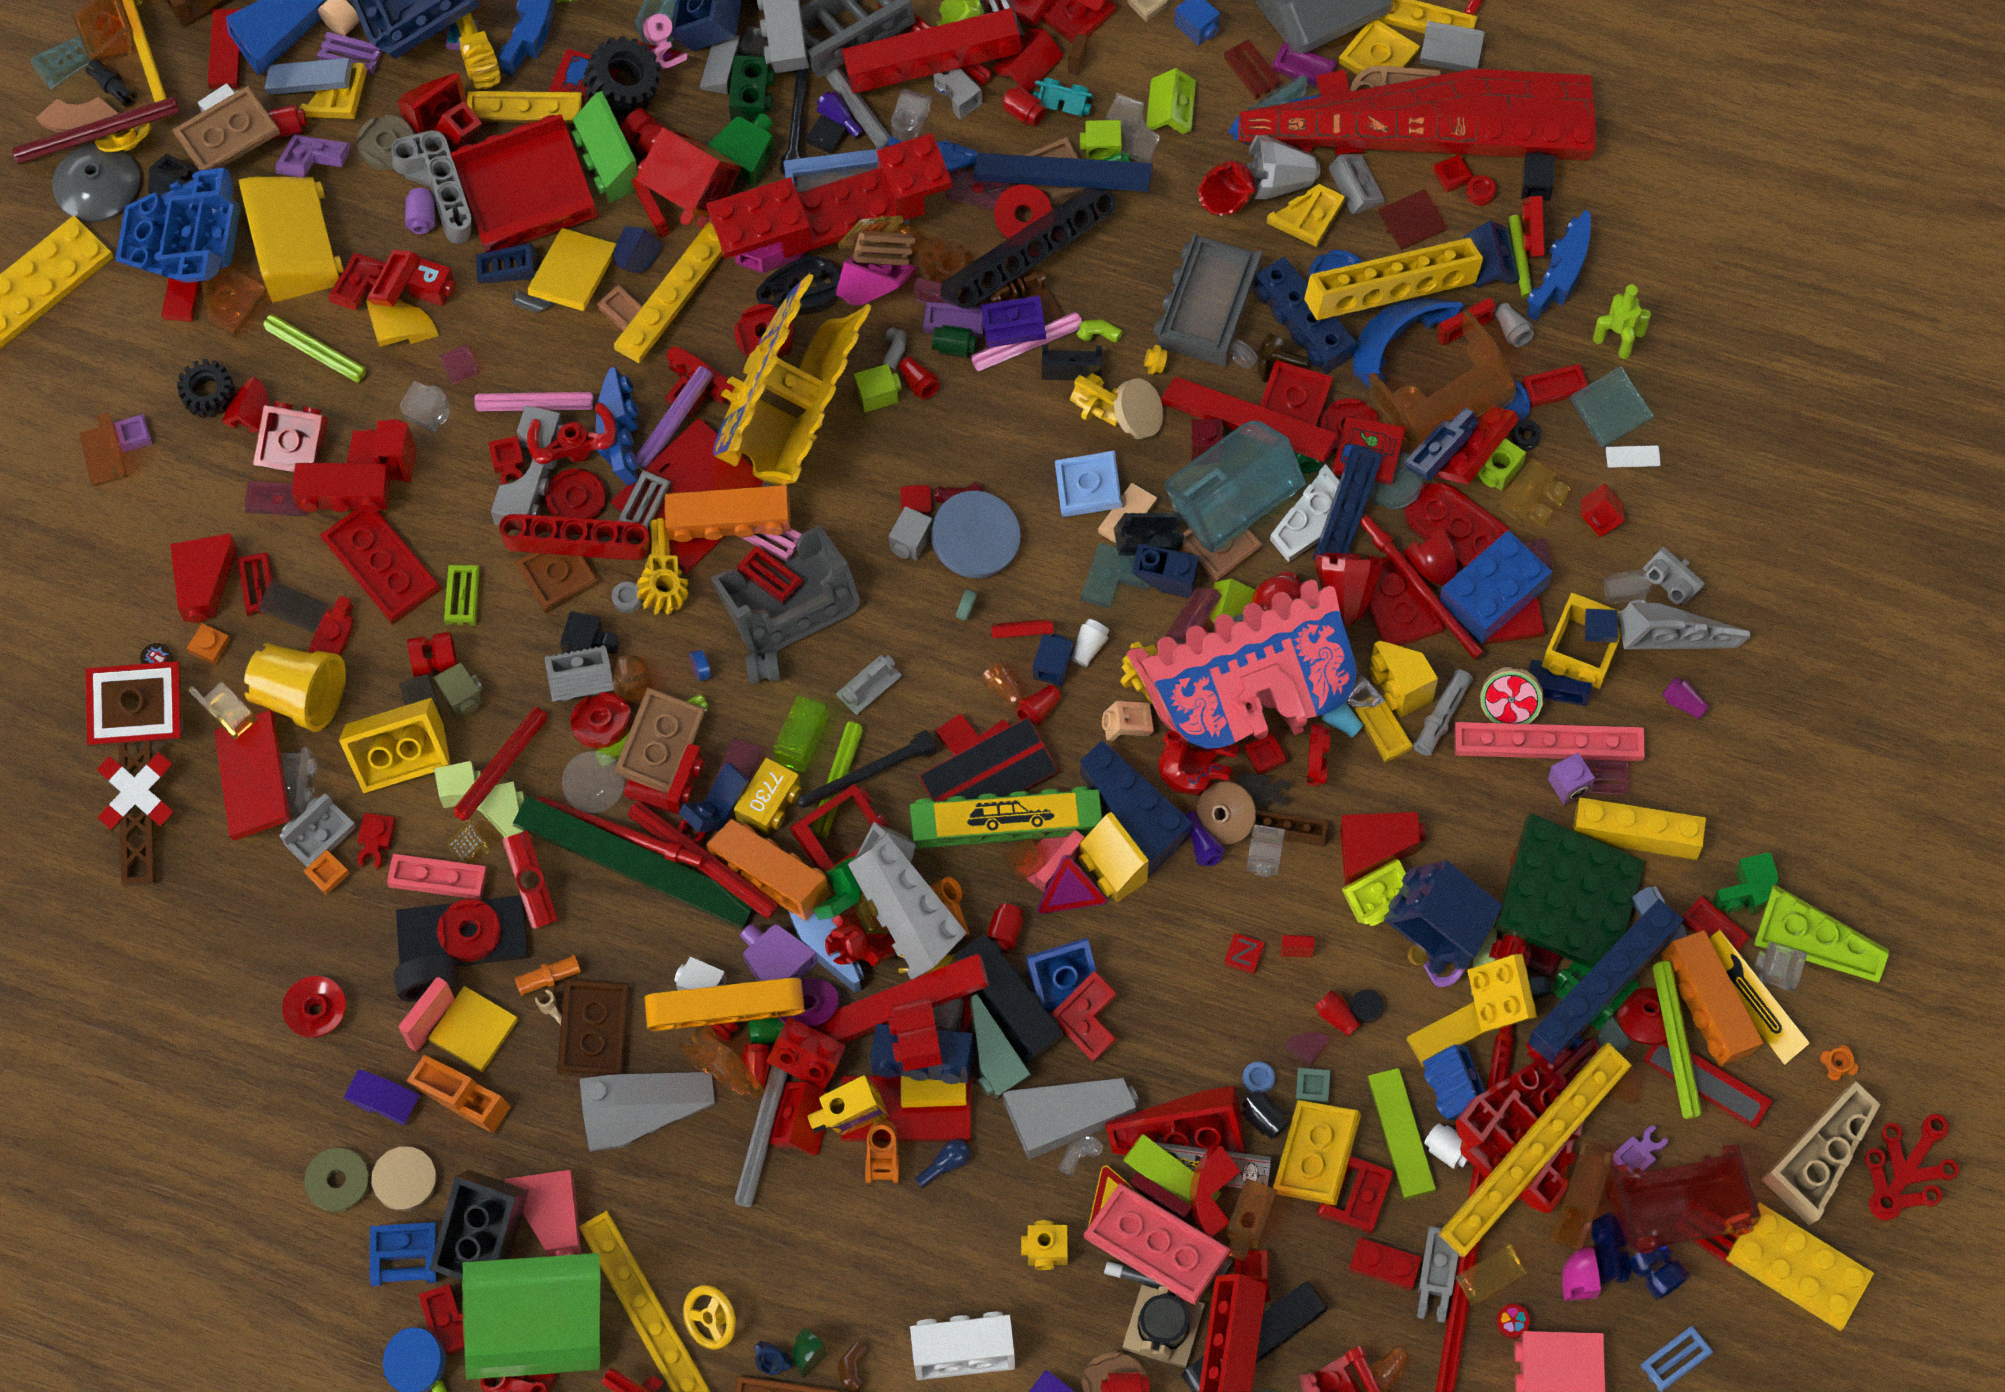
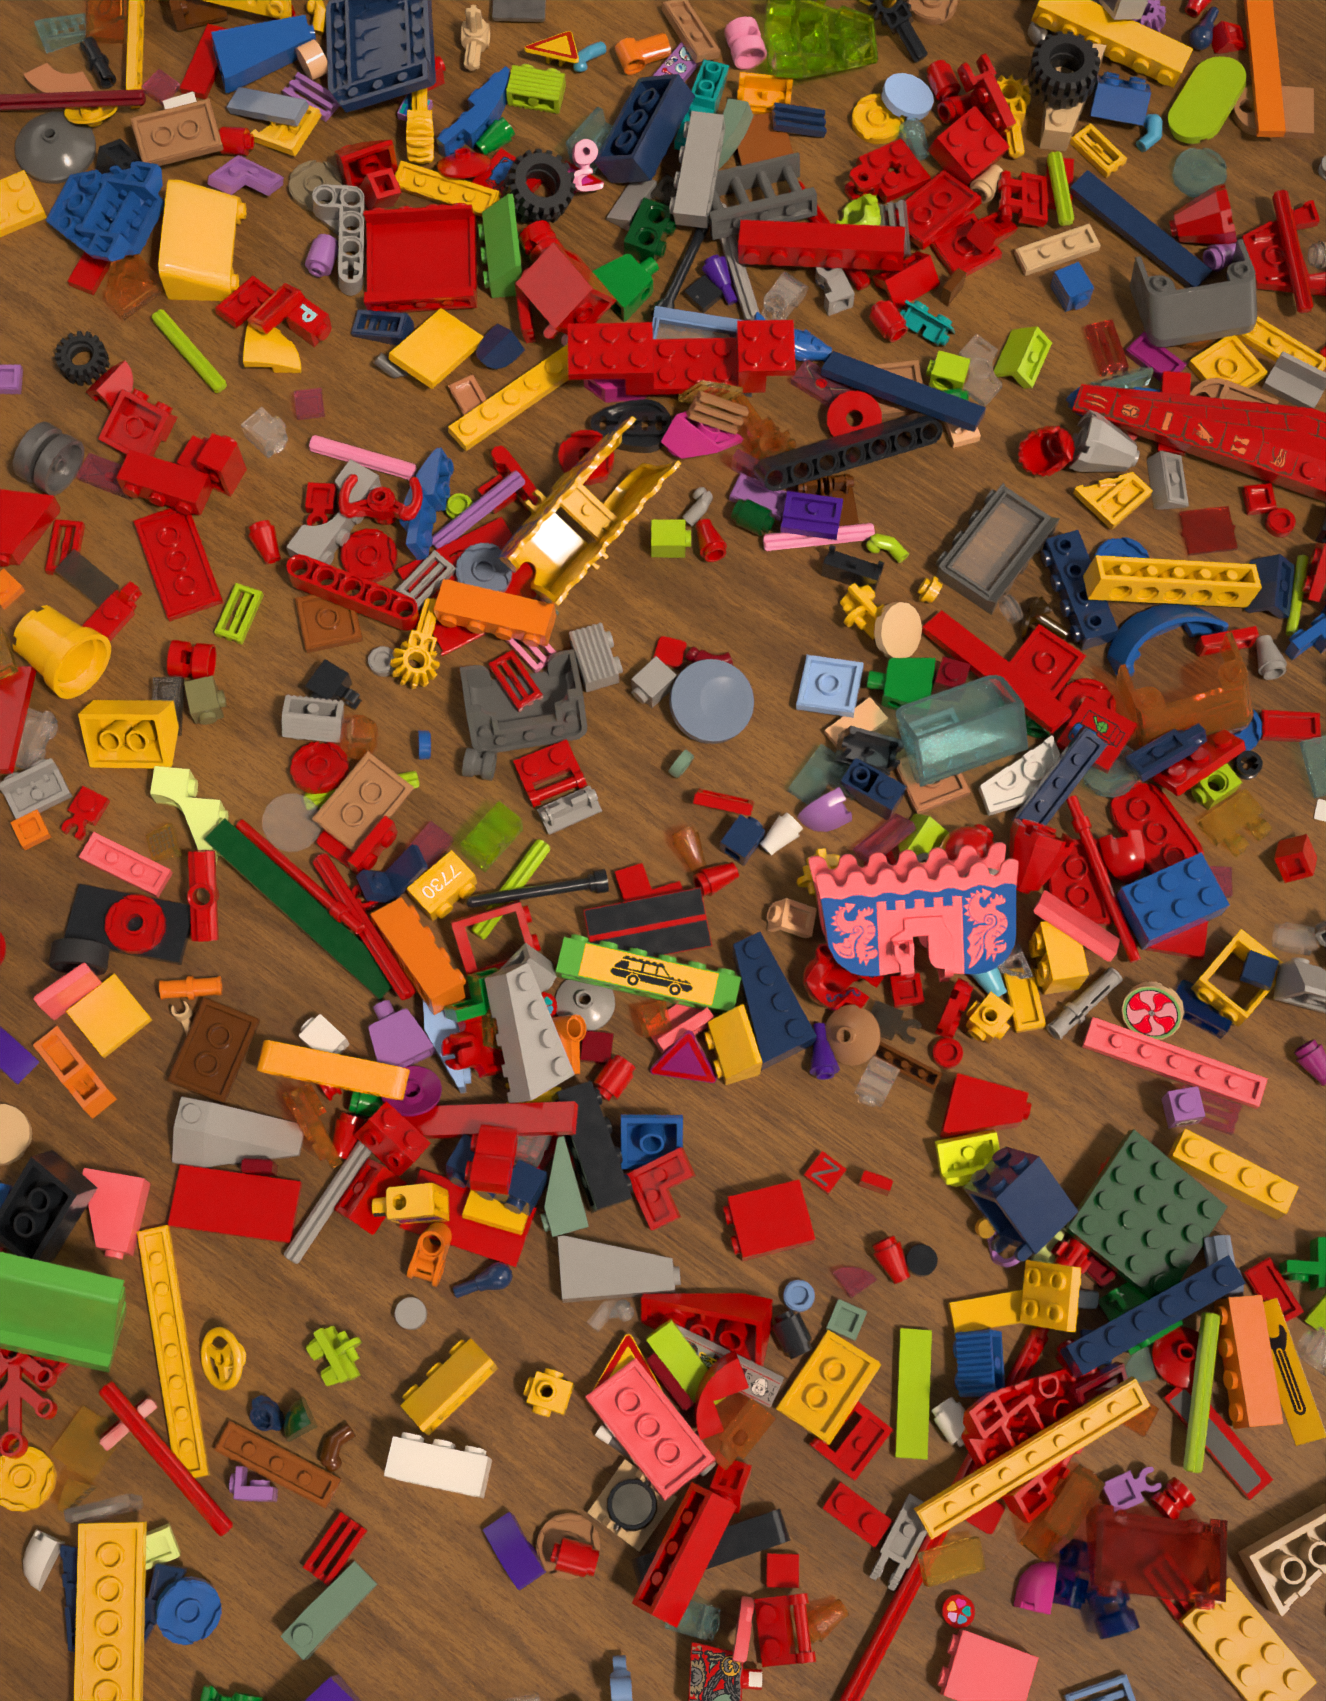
camera: 15 degrees right, 5 degrees up
(186, 88) = (160, 86): none -> clear pink tile
(212, 497) = (48, 458): none -> flat silver wheel
(463, 513) = (265, 540): none -> red cone
(500, 764) = (213, 780): red axle -> none
(535, 76) = (464, 164): none -> red dish
(557, 37) = (495, 136): none -> green cone
(649, 419) = (457, 504): none -> lime plate
(667, 1169) = (235, 1204): none -> red tile
(680, 1125) = (259, 1167): none -> dark red tile
(699, 471) = (483, 568): none -> sand blue tile
(830, 648) = (546, 765): none -> red plate
(831, 1288) = (339, 1352): none -> lime hips
(843, 525) = (594, 657): none -> light grey brick
(881, 1217) = (411, 1313): none -> light grey tile
(945, 1269) = (448, 1385): none -> yellow slope
(965, 870) = (595, 1013): none -> light grey dish
(977, 905) = (597, 1047): none -> dark red tile
(1126, 608) = (826, 812): none -> medium lavender brick
(1135, 199) = (960, 436): none -> light nougat tile
(1160, 456) = (904, 681): none -> green torso
(1205, 1015) = (769, 1220): none -> red brick
(1325, 802) = (947, 1053): none -> red tile
(1330, 1339) = (782, 1570): none -> red tile
(1355, 755) = (990, 1009): none -> yellow brick
(1411, 638) = (1077, 926): none -> coral tile
(1509, 1225) = (987, 1518): none -> red piece
(1683, 1149) = (1173, 1499): none -> red wheel

